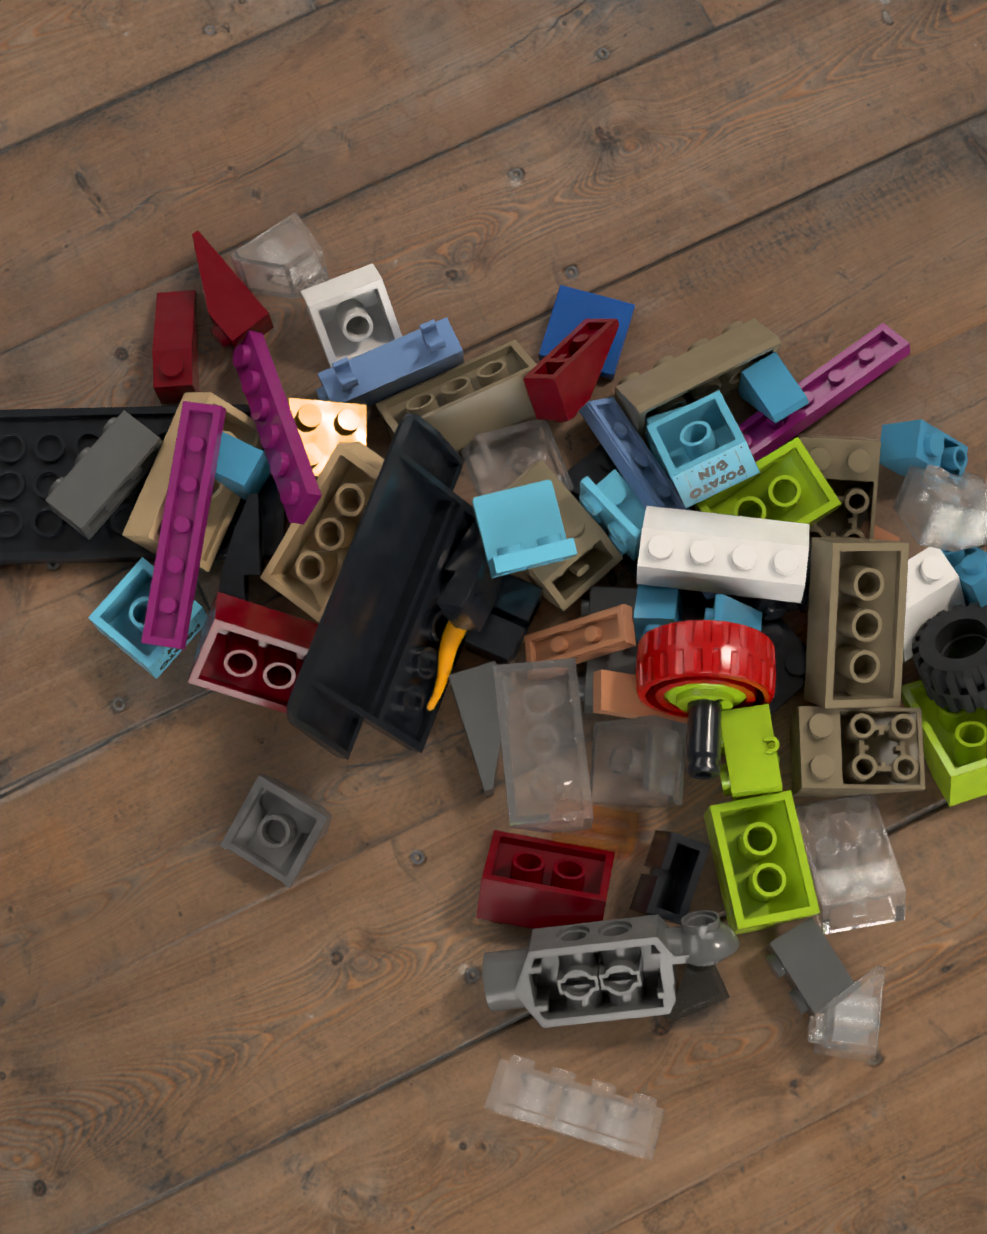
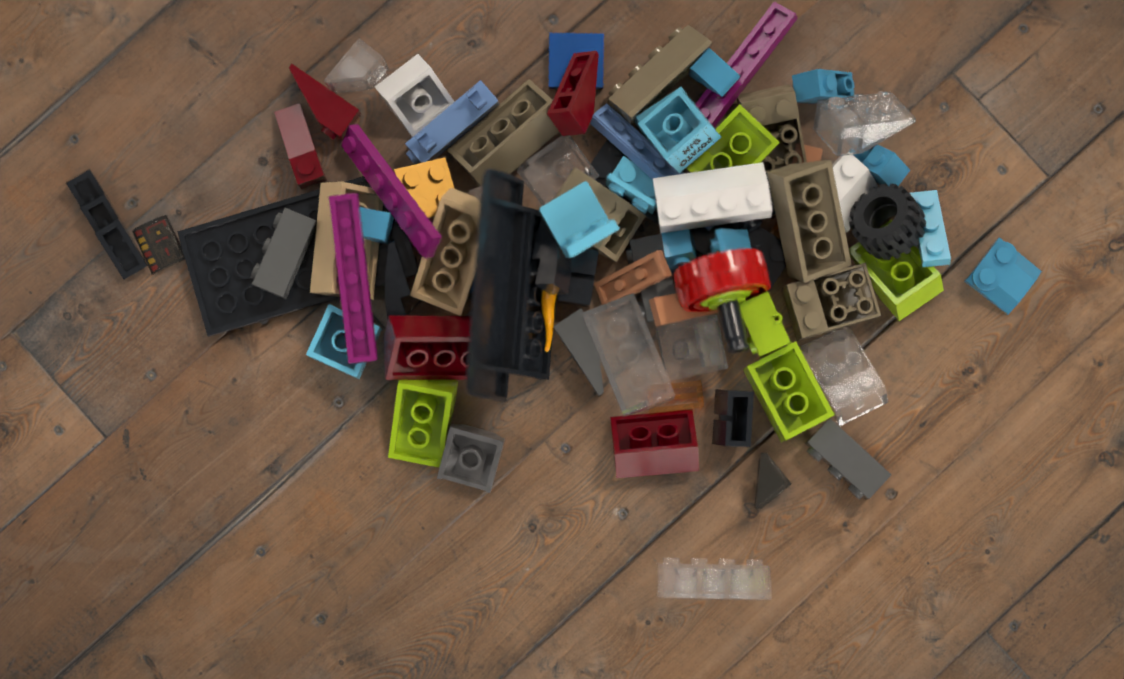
camera: 20 degrees left, 10 degrees up
(223, 756) = (422, 420): none -> lime slope
(603, 967) = (707, 488): dark grey brick -> none
(851, 1020) = (871, 477): clear slope -> none

